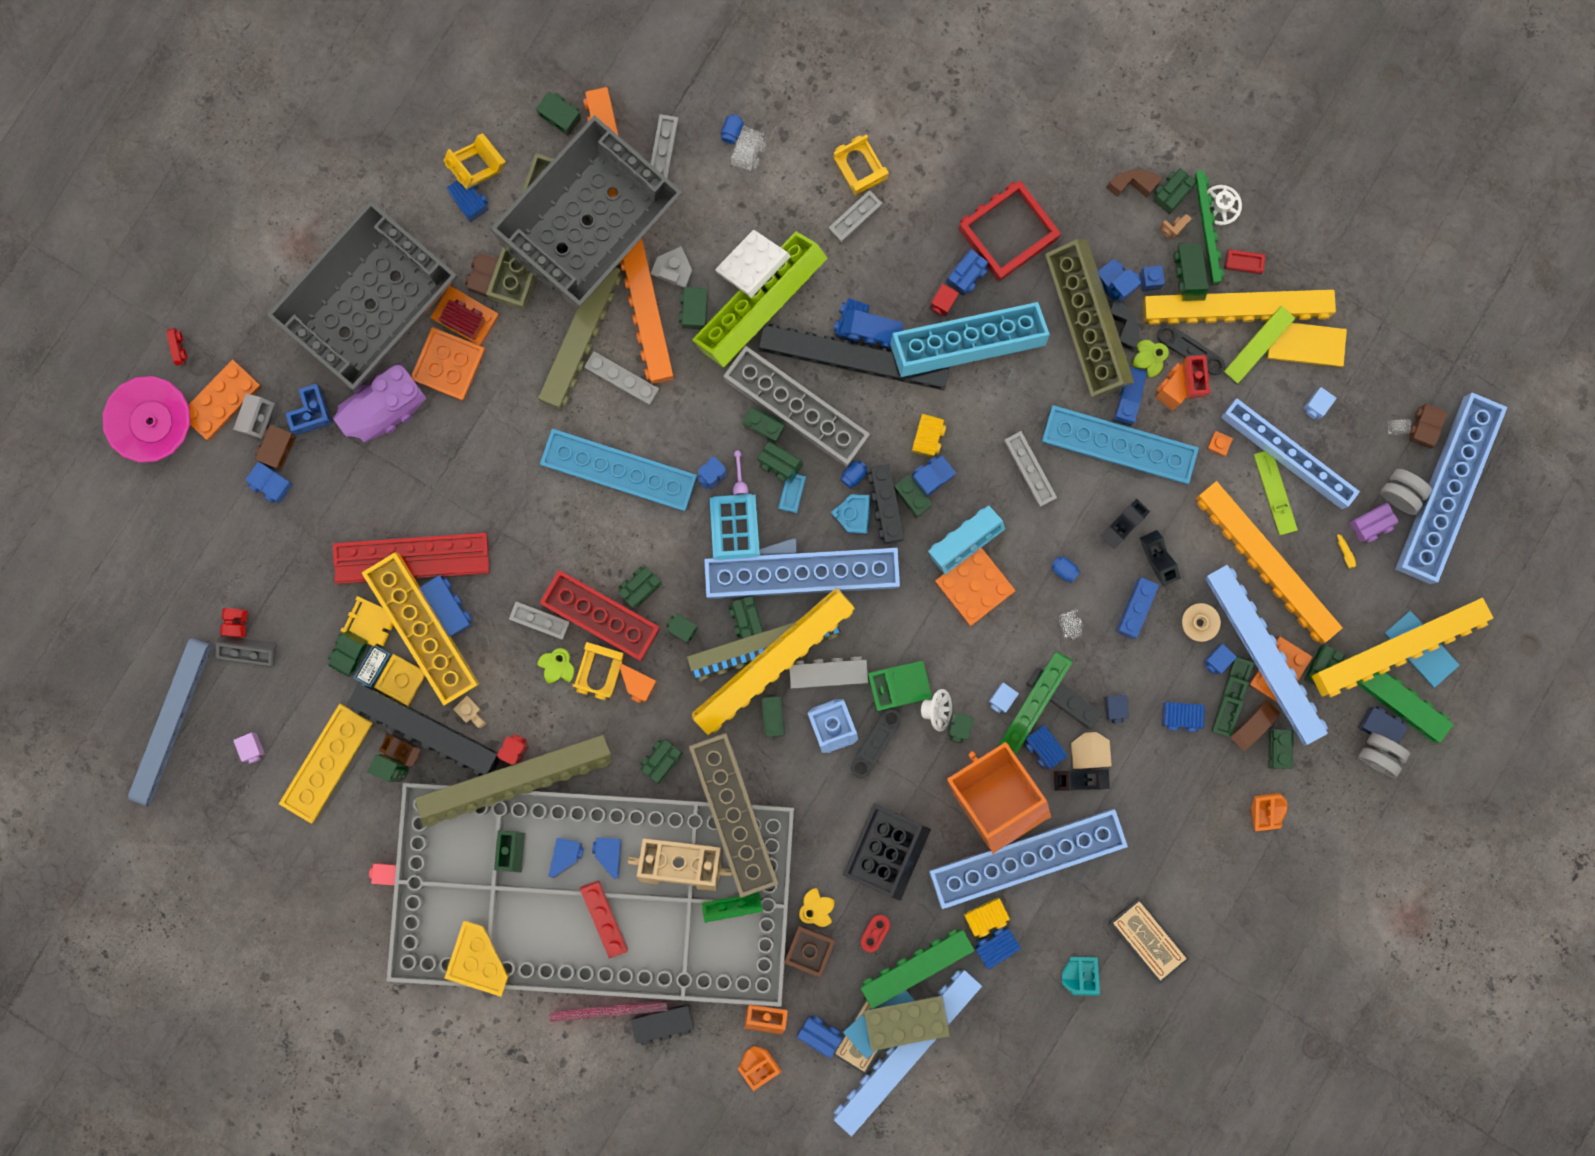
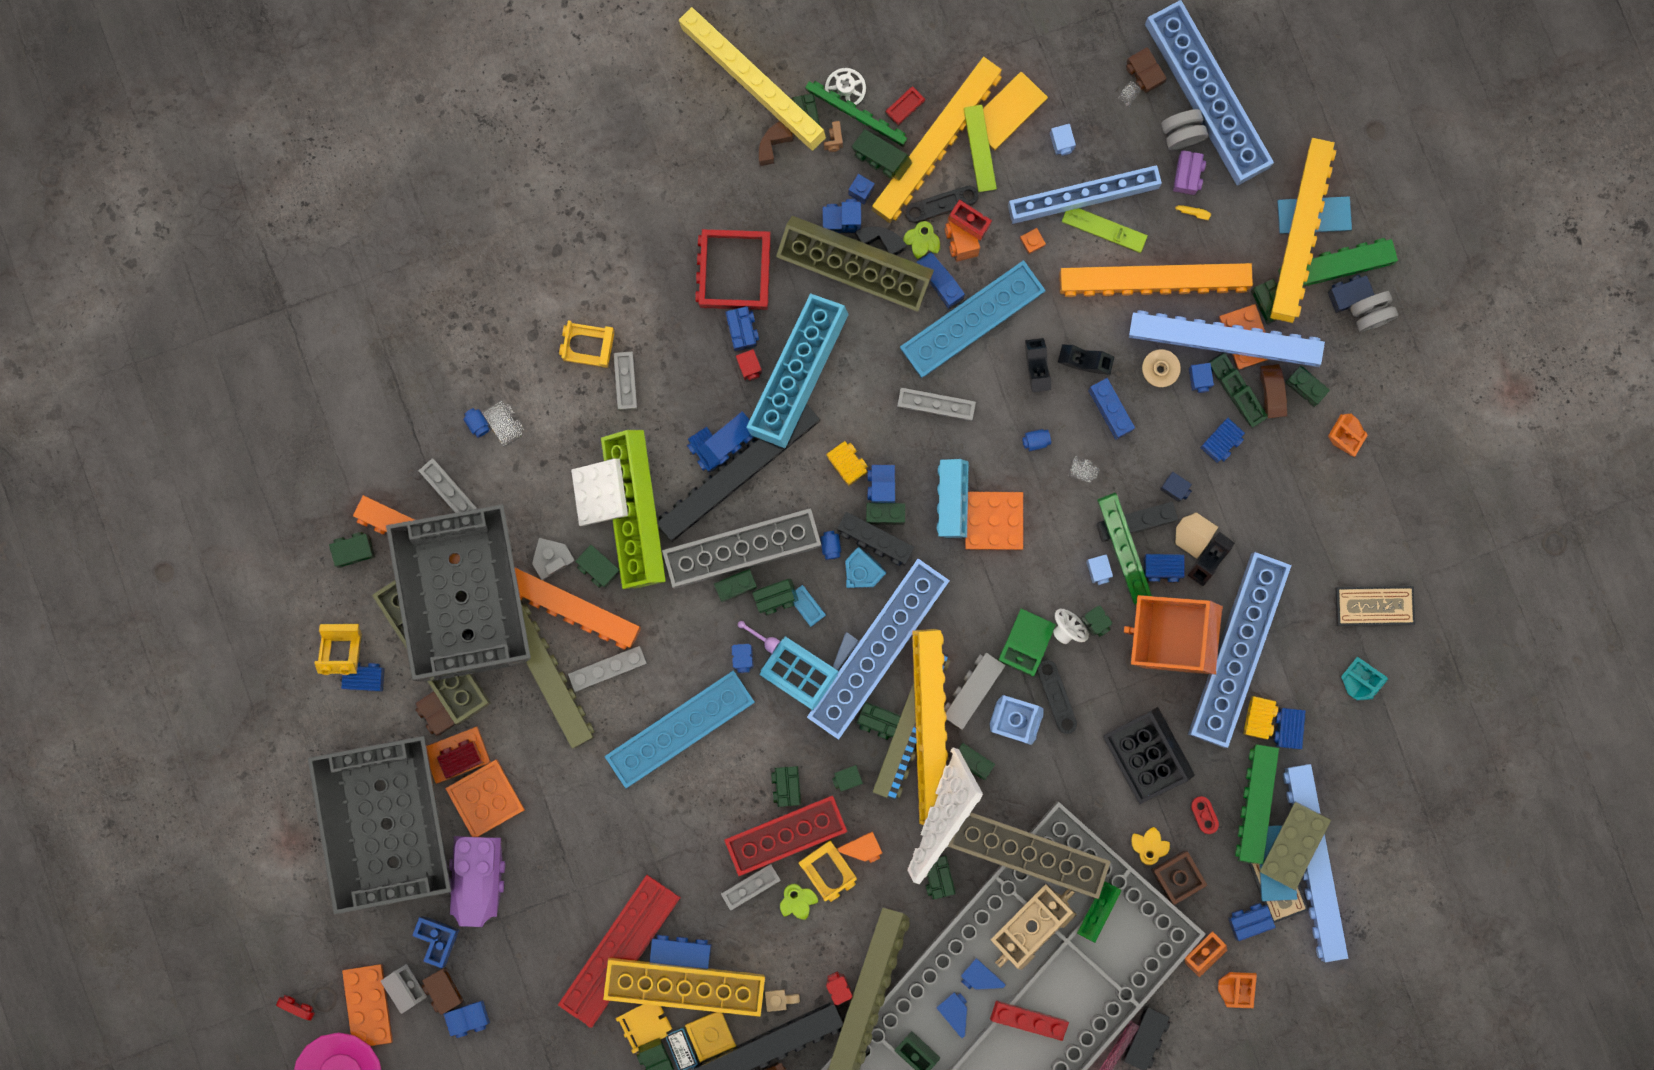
camera: 45 degrees left, 0 degrees up
(733, 723) = (955, 801): none -> white wing
(1169, 126) = (752, 79): none -> light yellow brick

